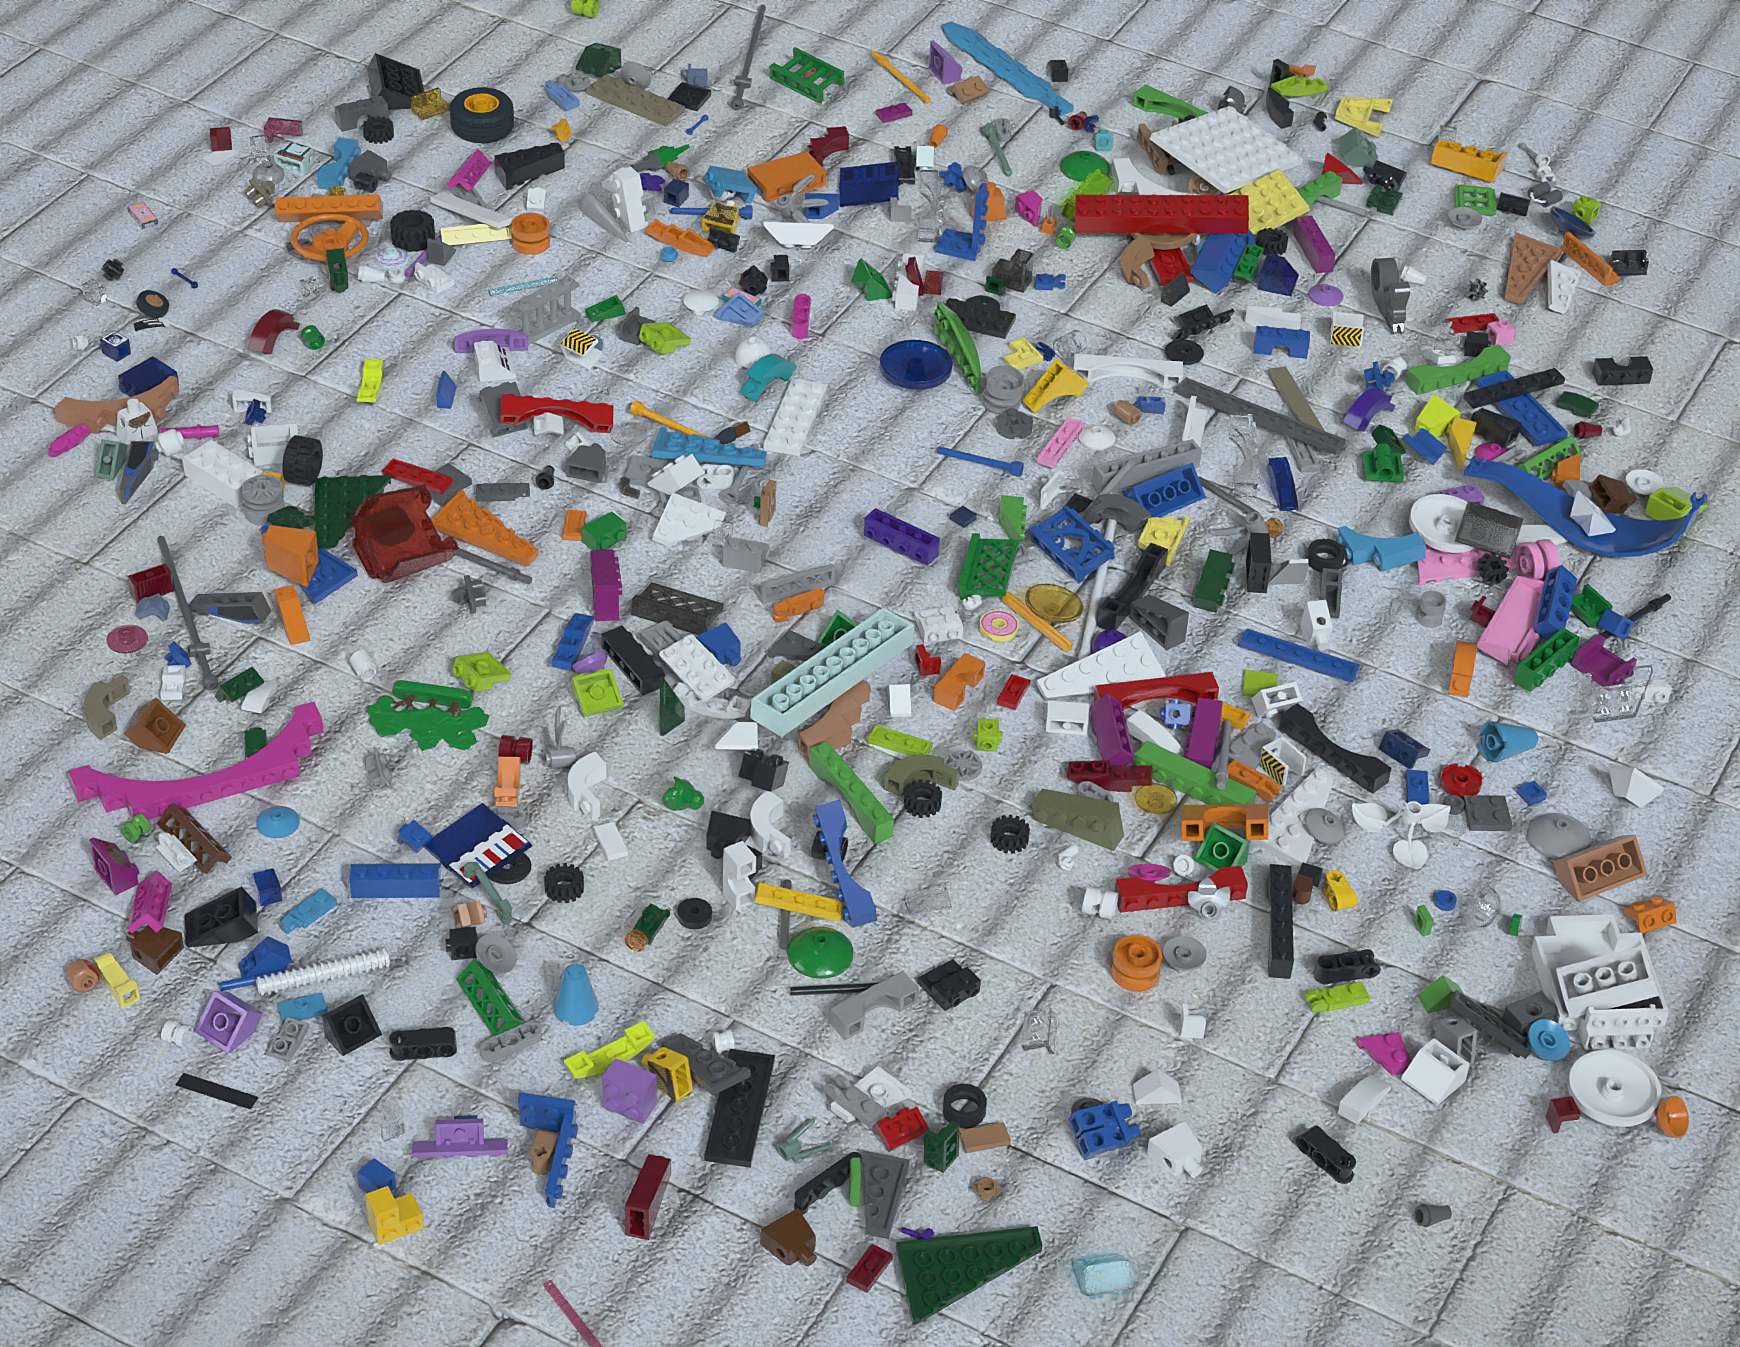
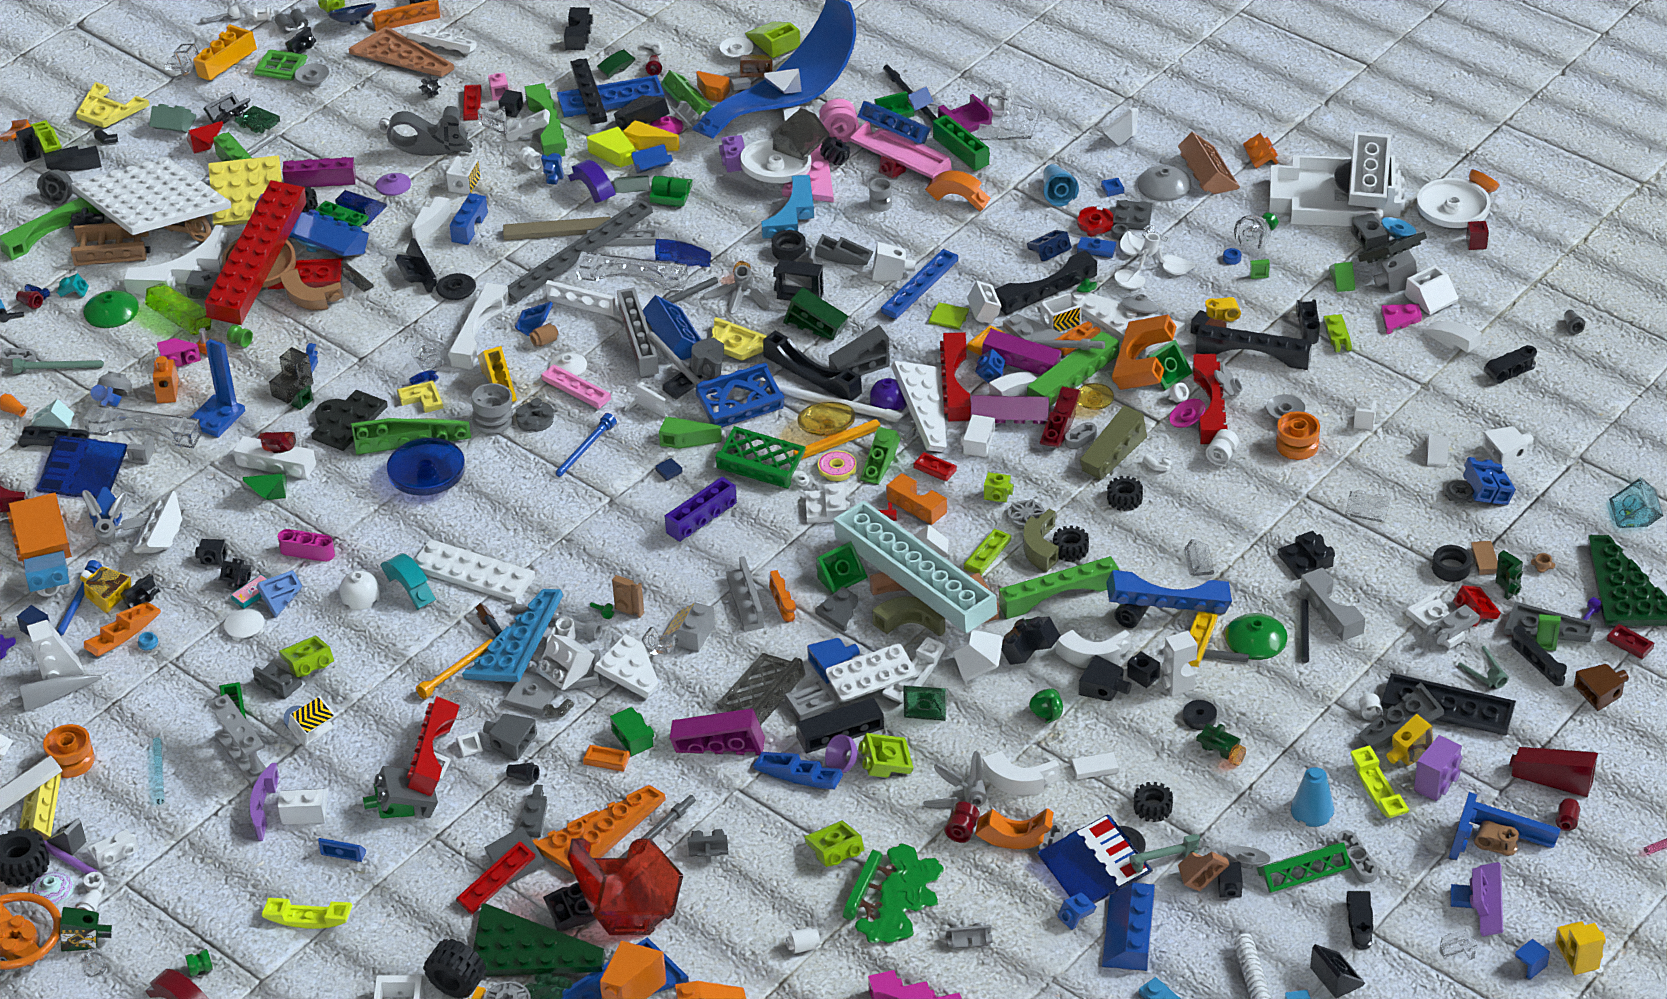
camera: 75 degrees left, 0 degrees up
(586, 1210) = (1568, 814): none -> dark red brick
(1020, 651) = (880, 455): none -> bright green slope
(1339, 781) = (1086, 286): none -> green piece

